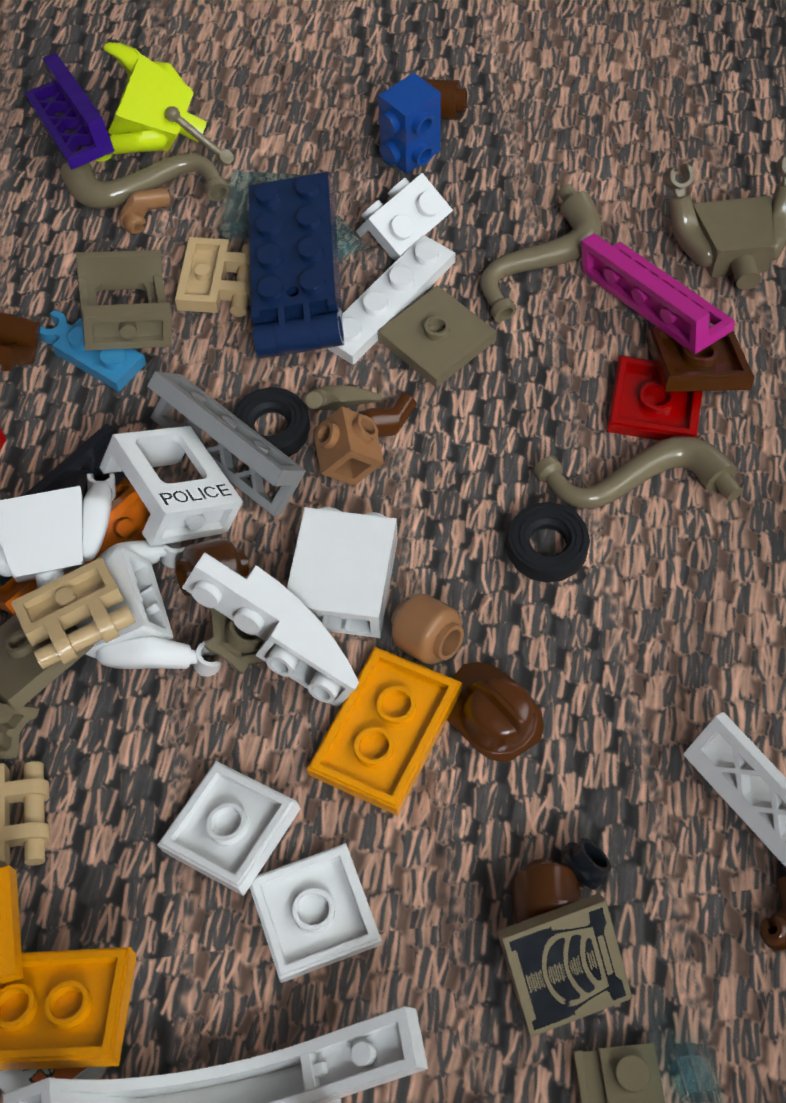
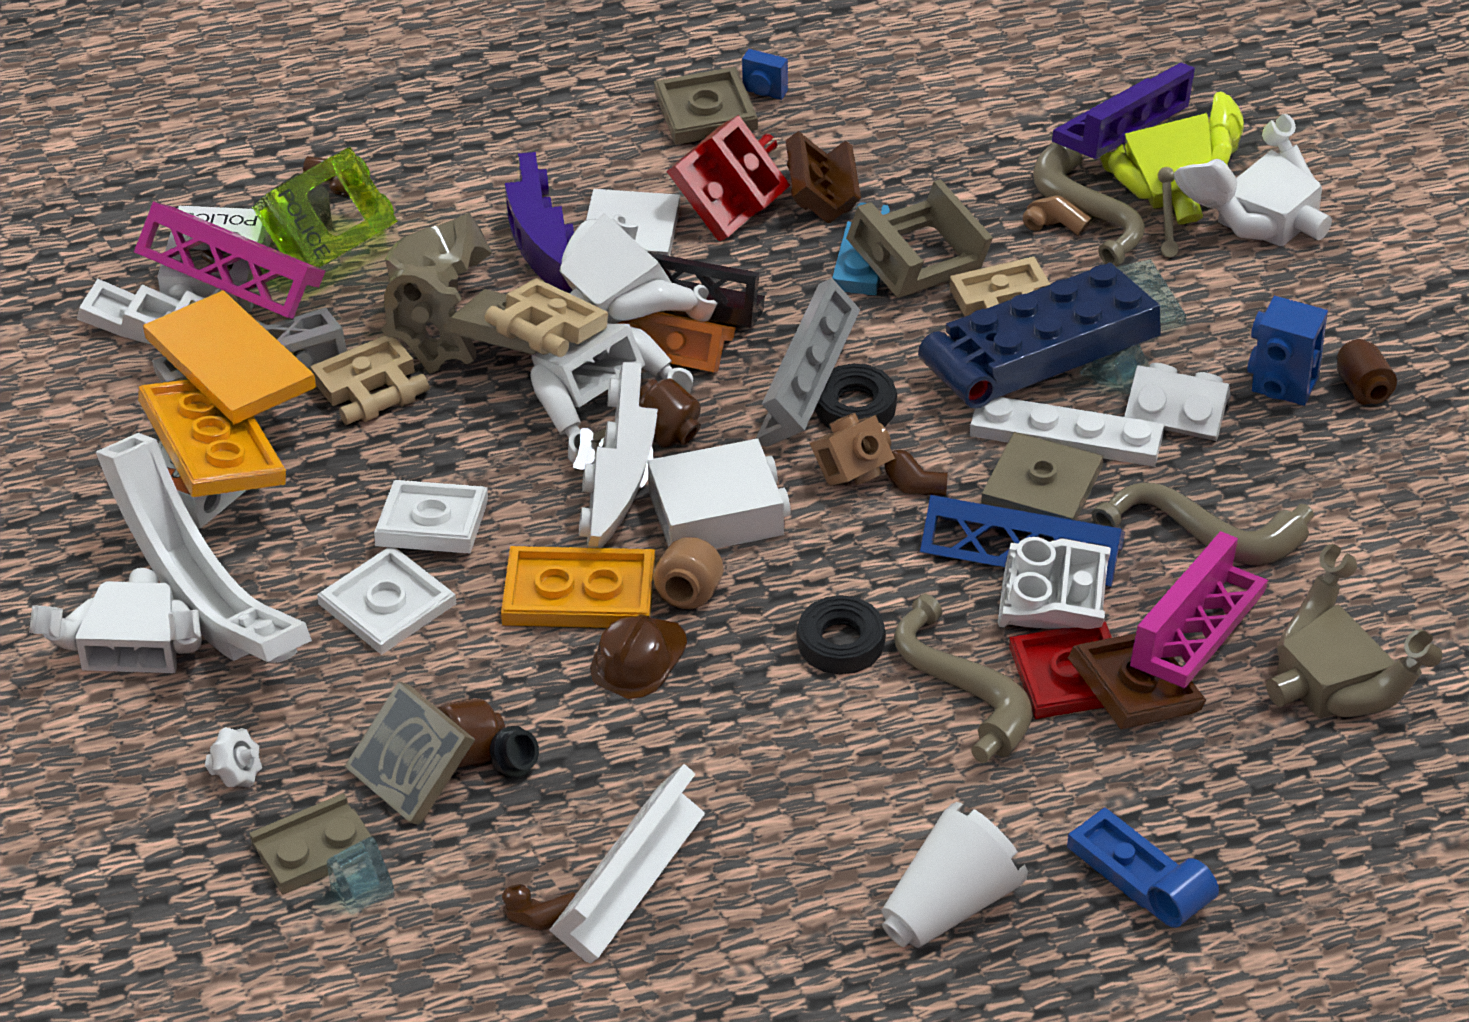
camera: 65 degrees right, 15 degrees down
(176, 509) = (712, 364): white window -> none
(219, 70) = (1268, 199): none -> white torso
(339, 395) = (915, 432): dark tan bar -> none
(489, 364) = (1012, 522): none -> blue fence
(574, 374) = (1054, 584): none -> white slope

